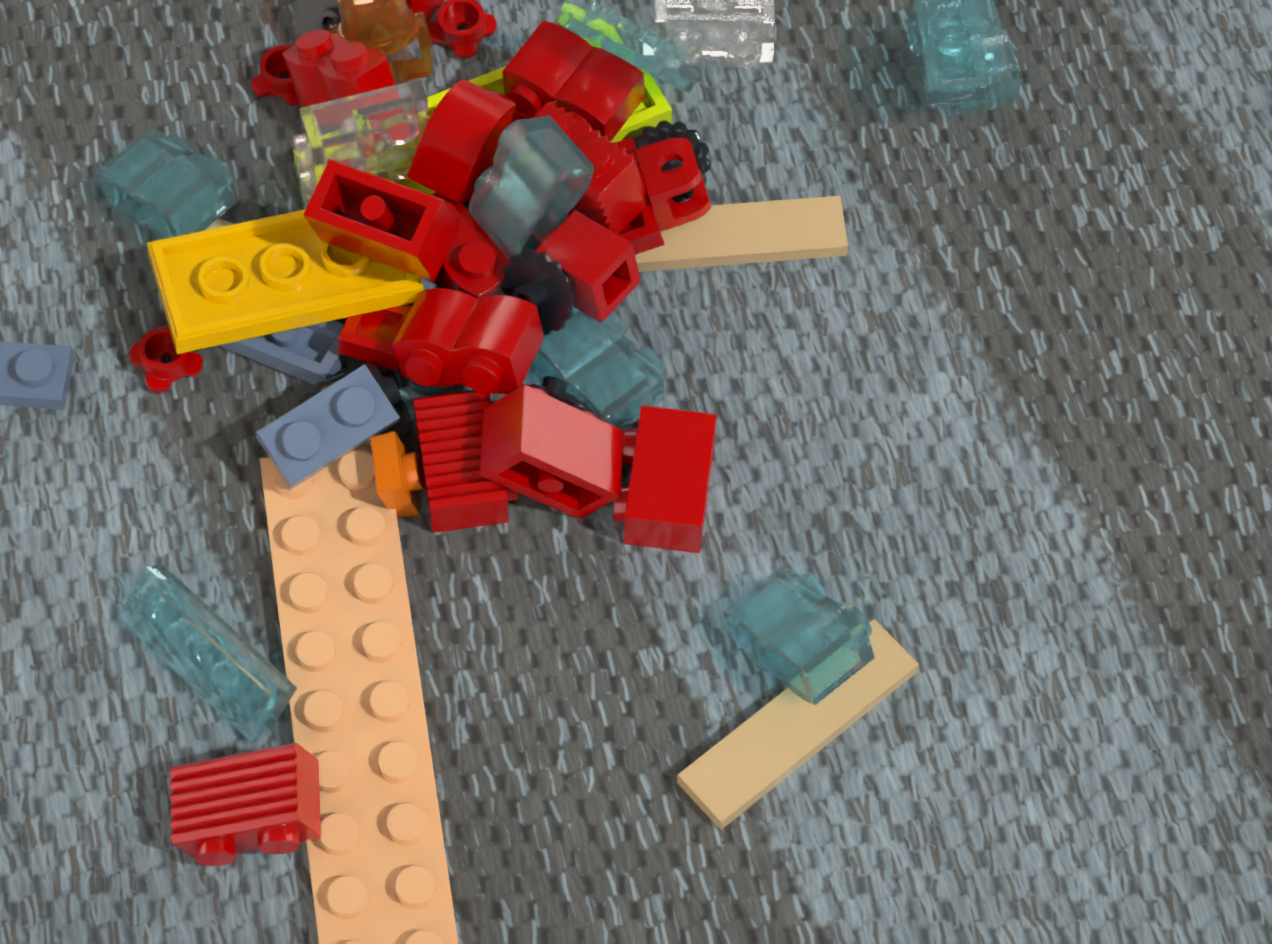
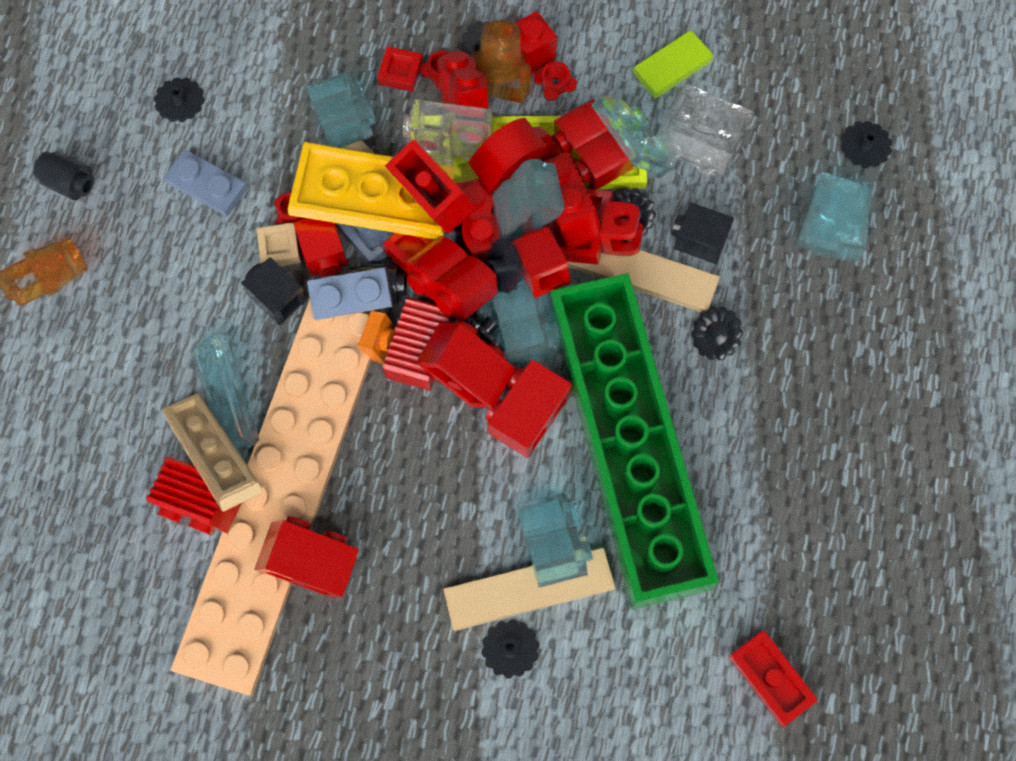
camera: 30 degrees right, 10 degrees up
(172, 413) = (279, 243): none -> tan plate
(201, 476) = (273, 290): none -> black brick
(222, 98) = (400, 69): none -> red plate
(238, 386) = (320, 246): none -> red brick
(240, 724) = (211, 452): none -> tan tile
(461, 813) = (306, 557): none -> red brick
(785, 146) = (701, 232): none -> black brick
(815, 816) = (510, 649): none -> black piece
(842, 458) = (632, 443): none -> green brick
(877, 270) = (717, 333): none -> black piece
(1196, 684) = (773, 678): none -> red plate

